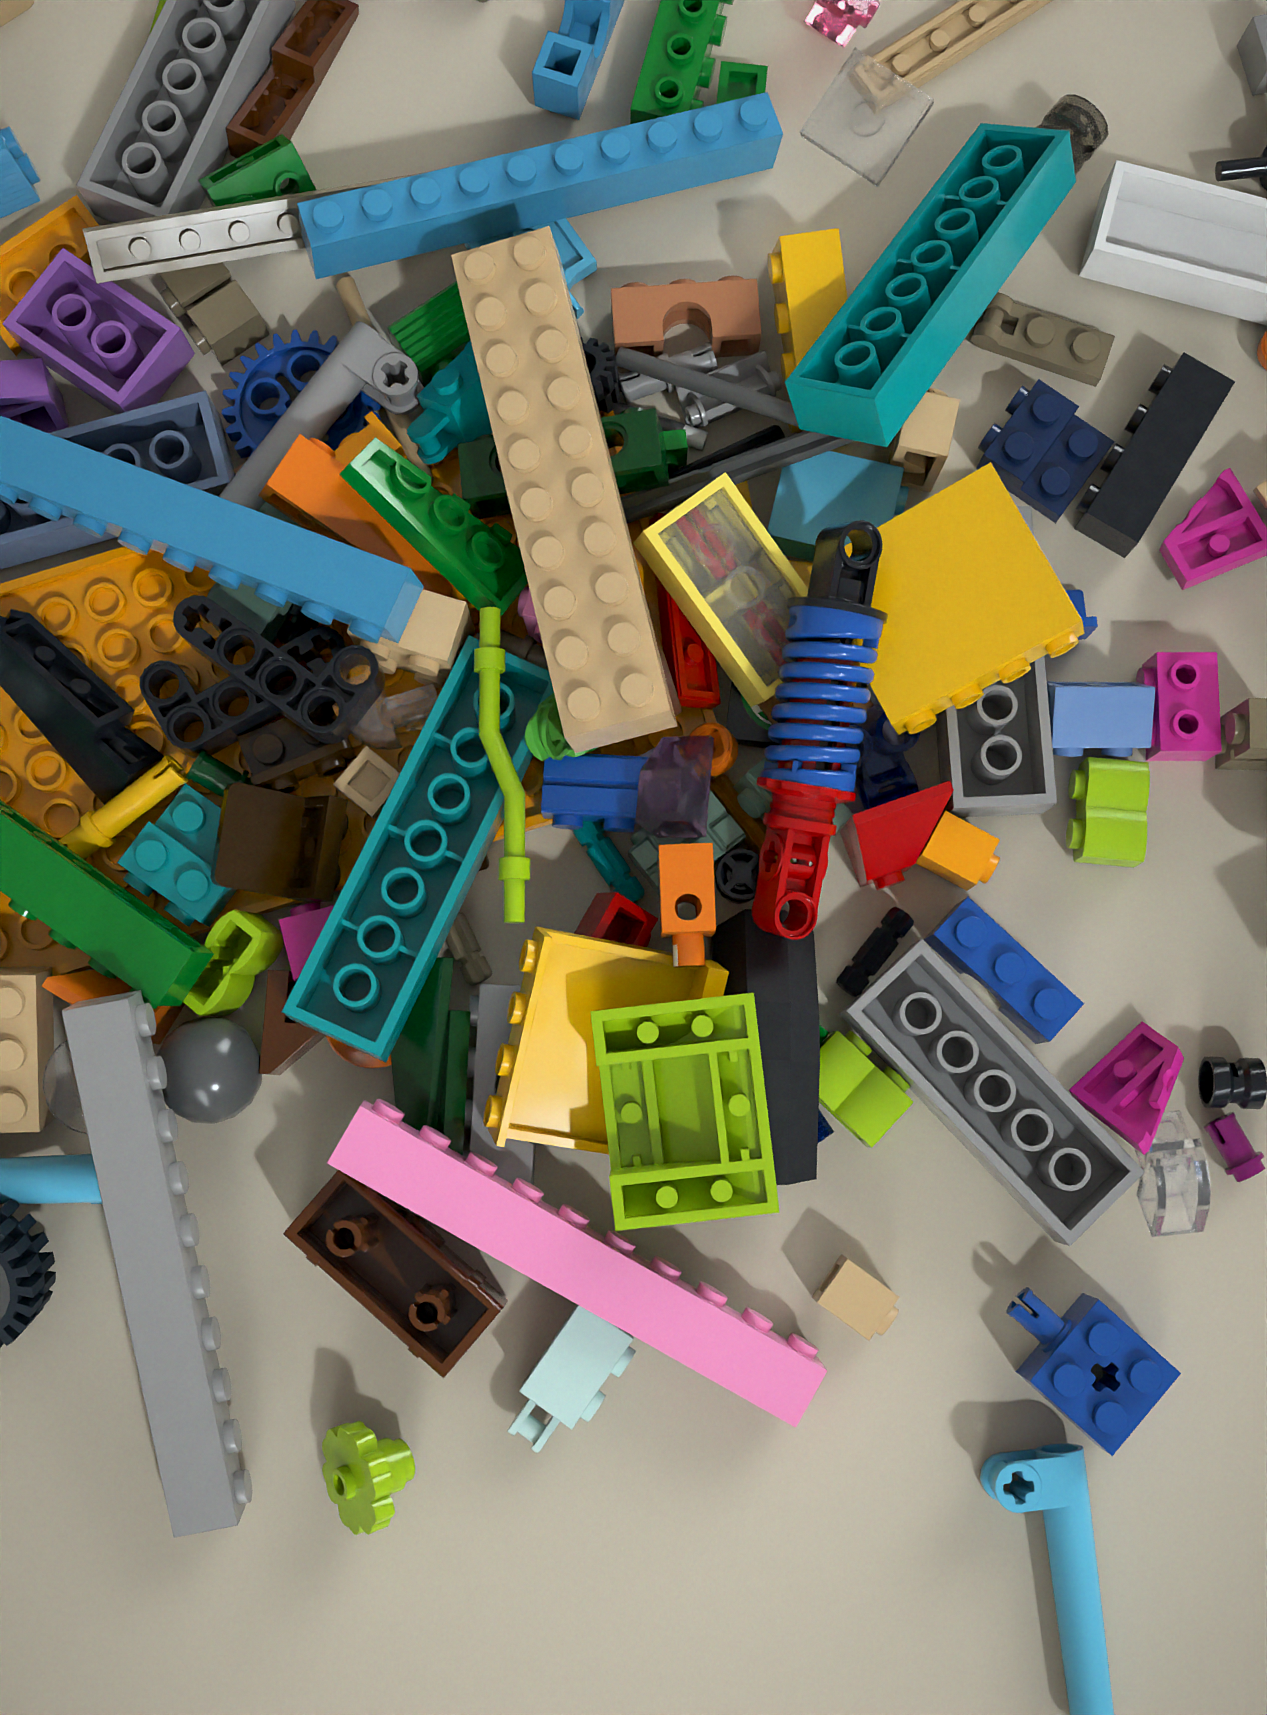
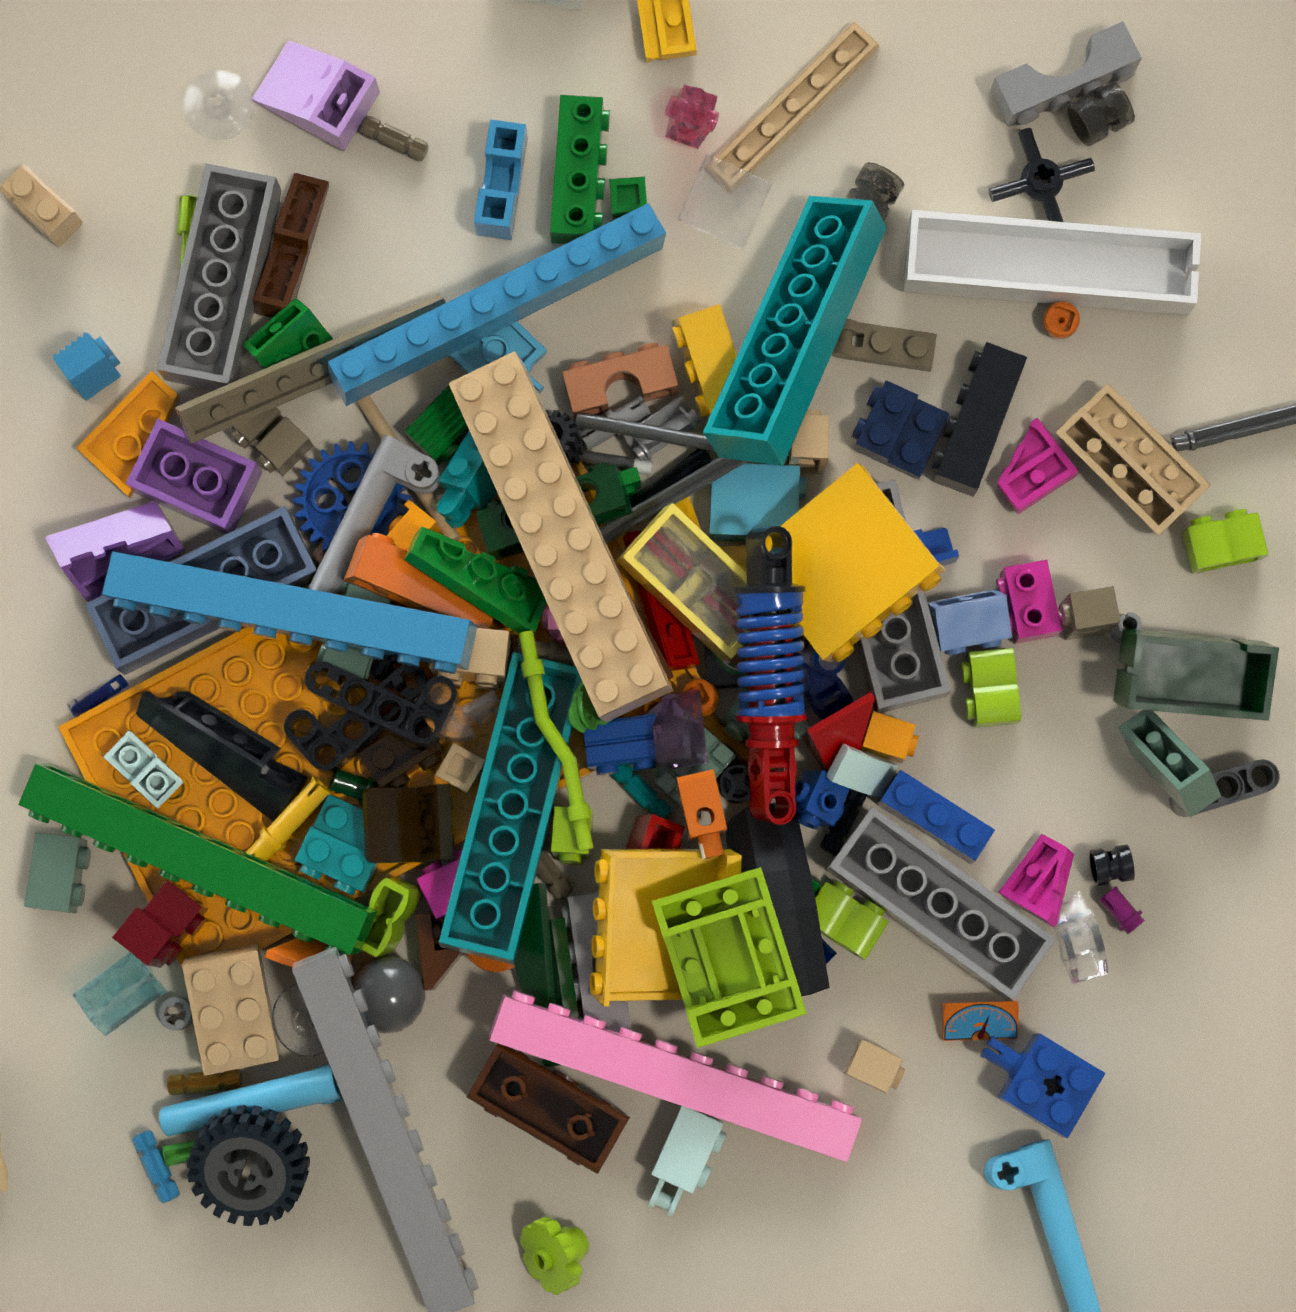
camera: 10 degrees left, 0 degrees up
(487, 904) = (564, 838): none -> lime brick
(849, 916) = (818, 799): none -> blue brick
(913, 889) = (861, 771): none -> light aqua slope
(1012, 1261) = (980, 1020): none -> slope

